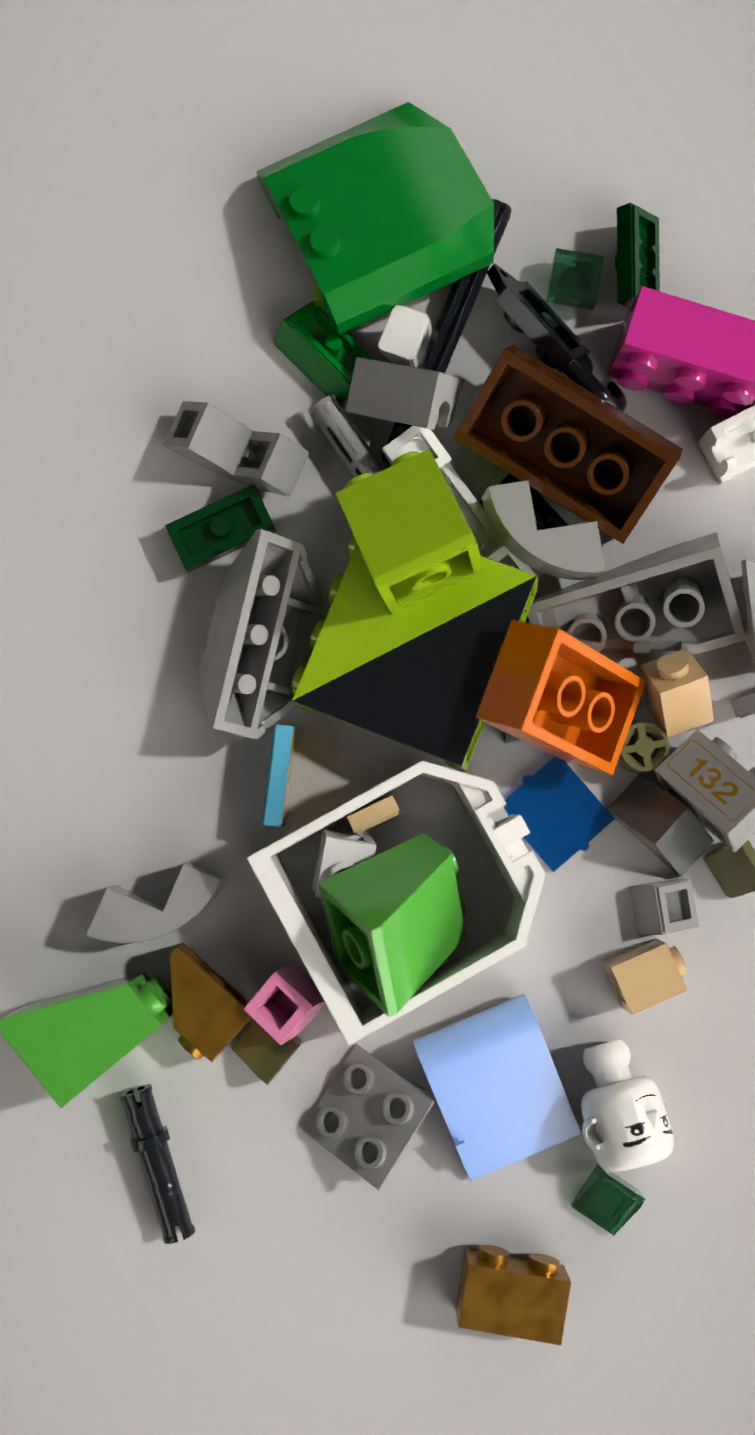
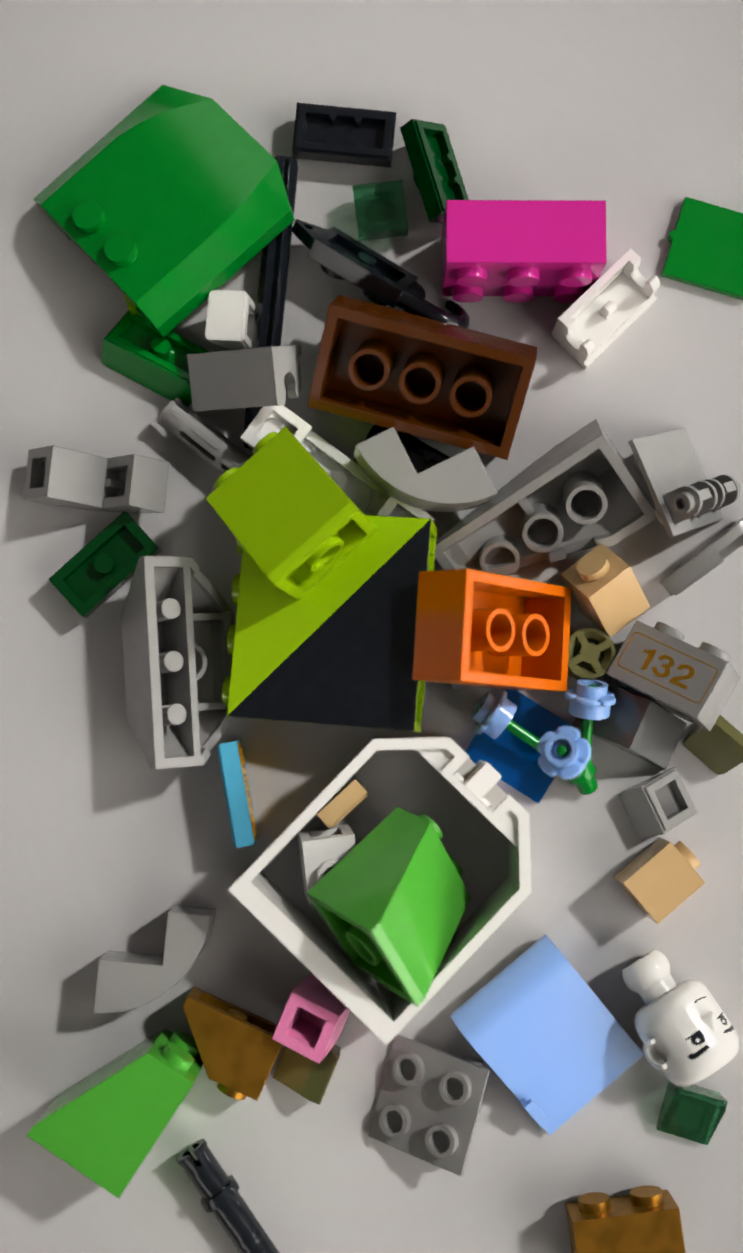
camera: 10 degrees left, 0 degrees up
(562, 199) = (344, 135): none -> black plate
(595, 826) = (562, 752): none -> light blue plant

